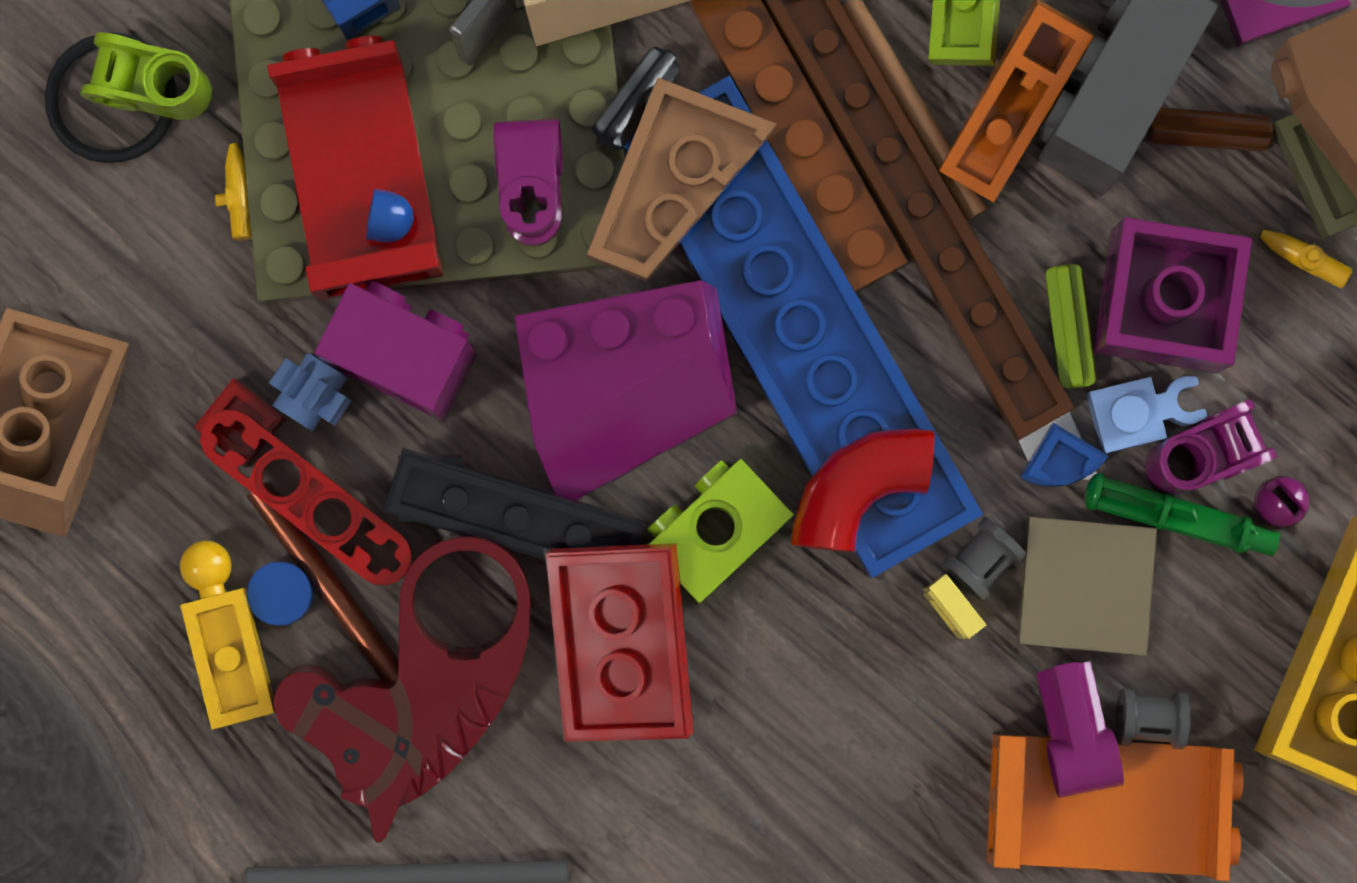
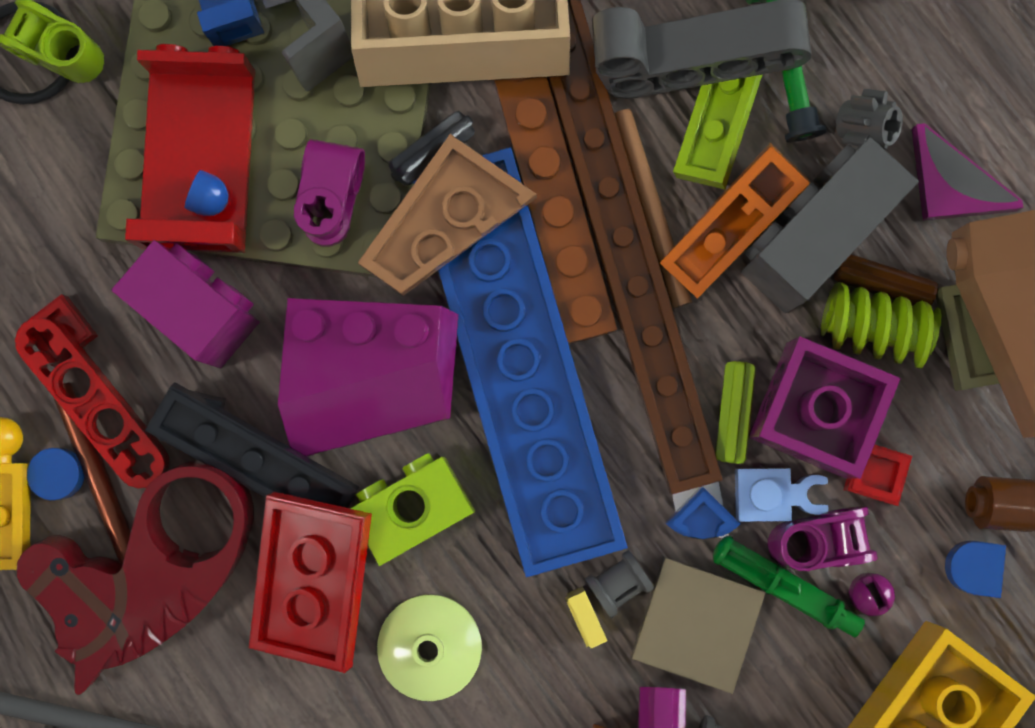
camera: 20 degrees right, 0 degrees up
(236, 194) = (100, 149): yellow helmet -> none
(310, 391) = (113, 322): medium blue gear -> none
(742, 684) = (434, 620): none -> yellowish green dish
(855, 479) = (529, 496): red cylinder -> none
(1216, 181) = (881, 323): none -> lime piece
(1259, 360) = (882, 476): none -> red tile
(1307, 257) = (940, 402): yellow helmet -> none

